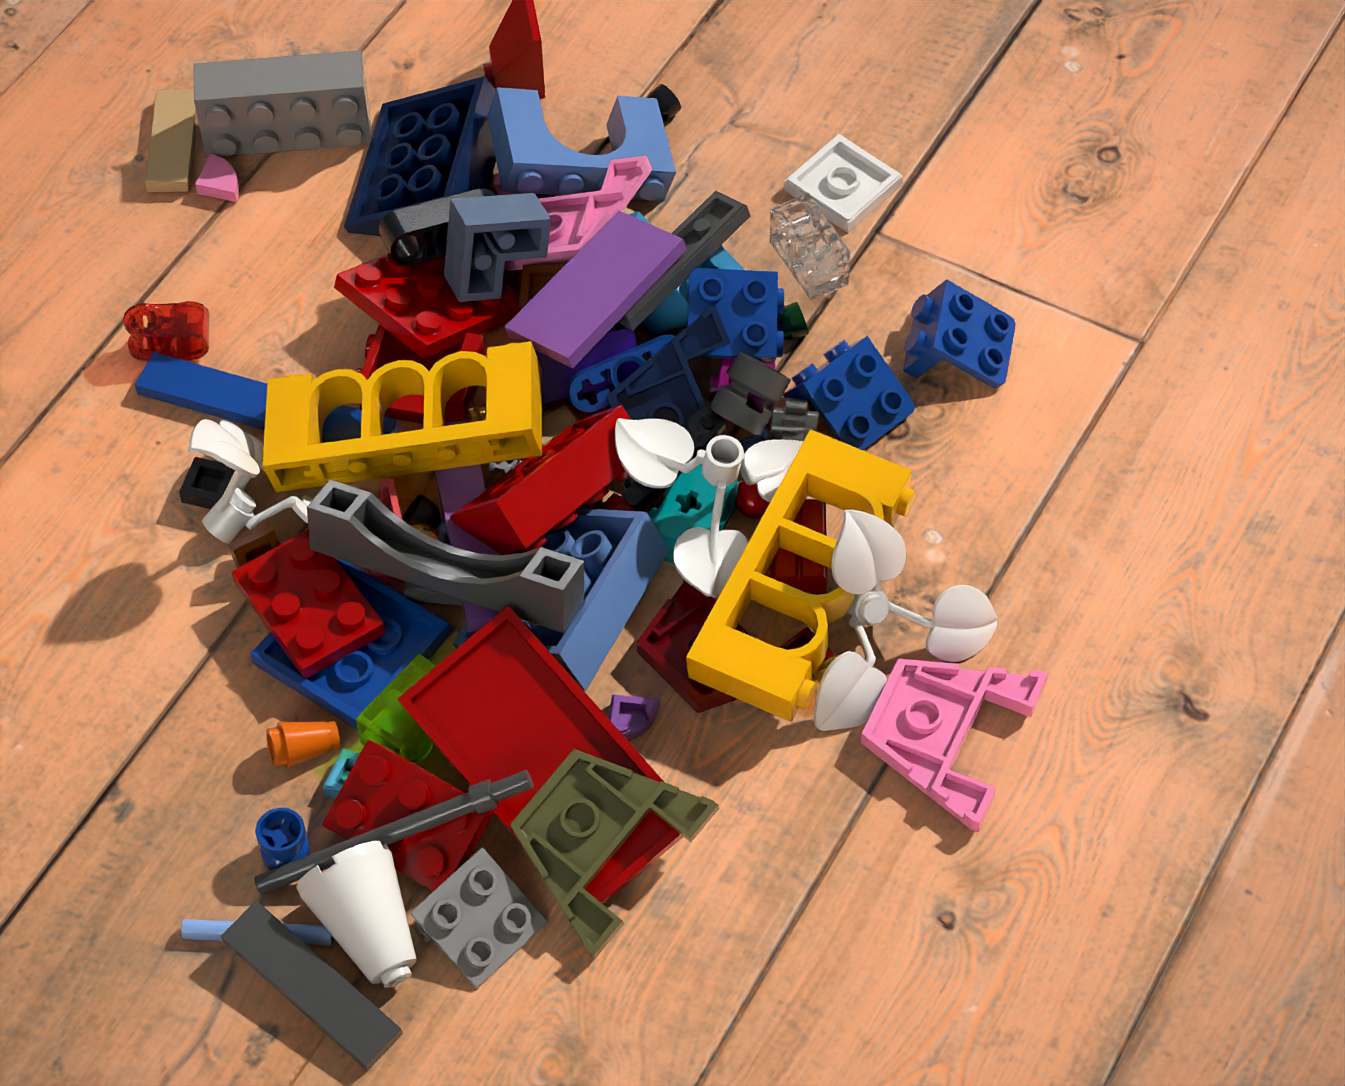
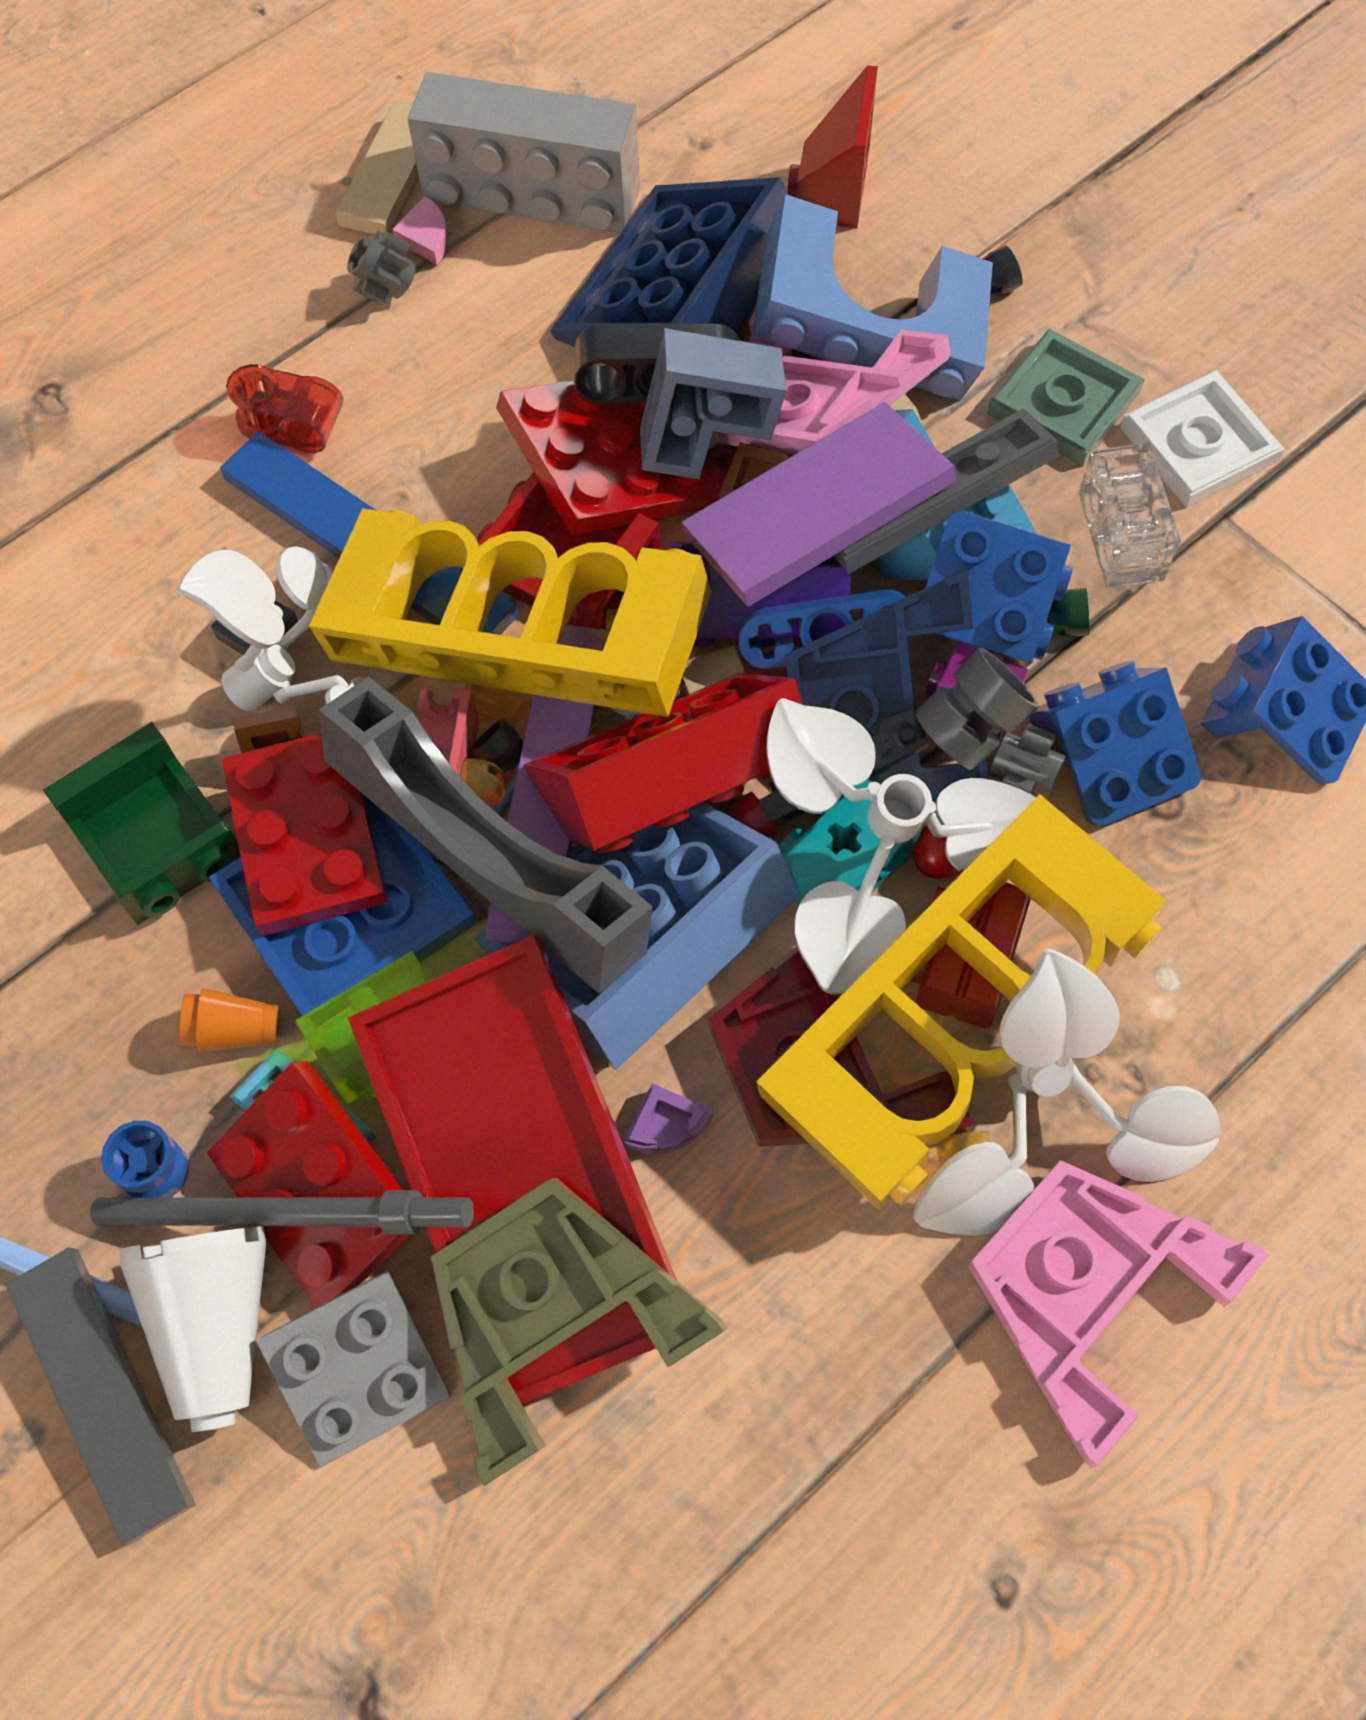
camera: 20 degrees right, 10 degrees up
(184, 636) = (144, 823): none -> dark green panel
(200, 212) = (381, 266): none -> dark grey gear
(740, 172) = (1068, 393): none -> sand green tile

